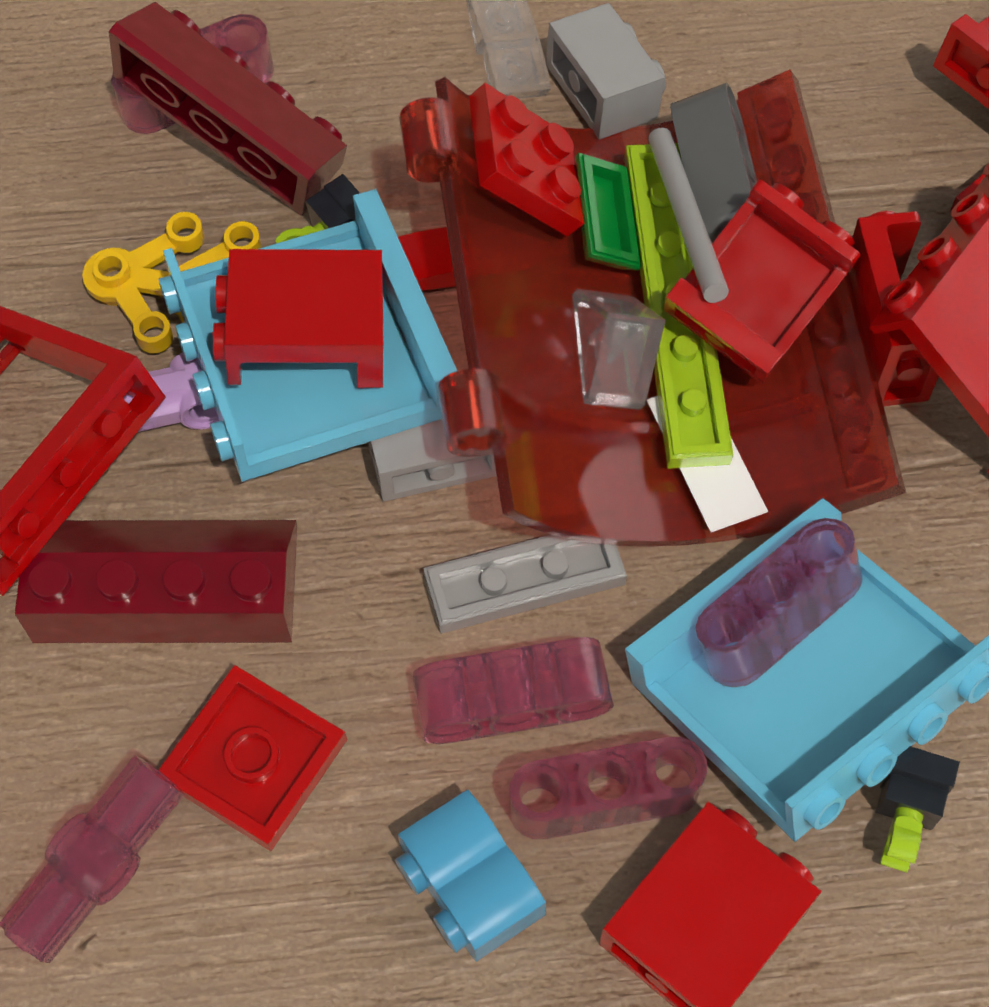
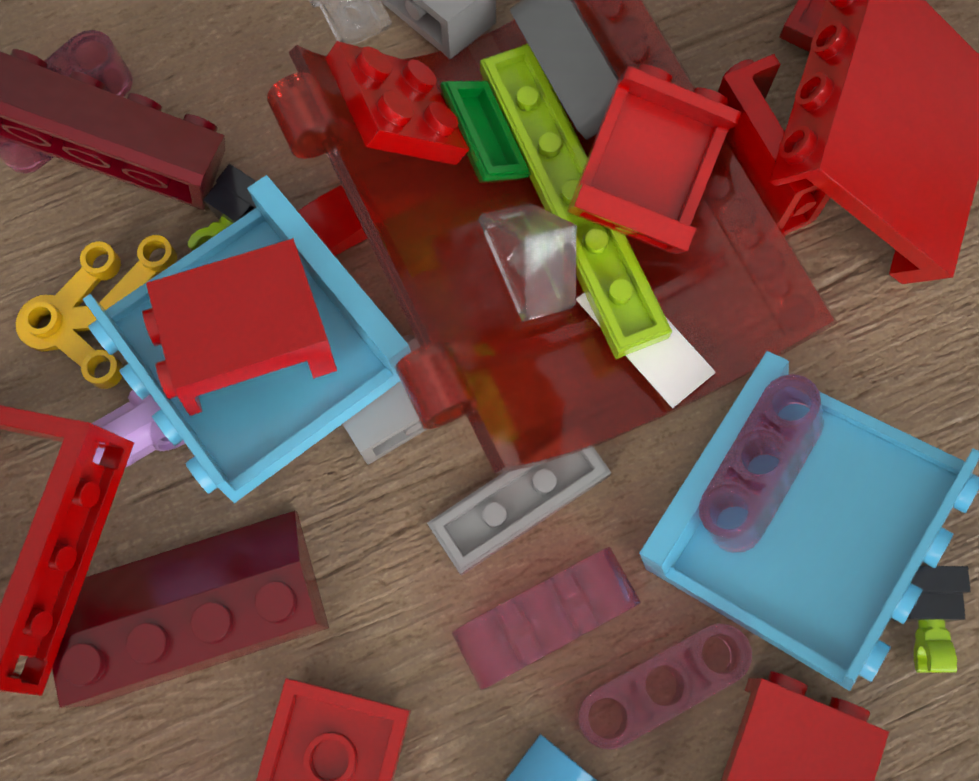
camera: 15 degrees left, 10 degrees up
(688, 216) = (566, 118): light grey bar -> none

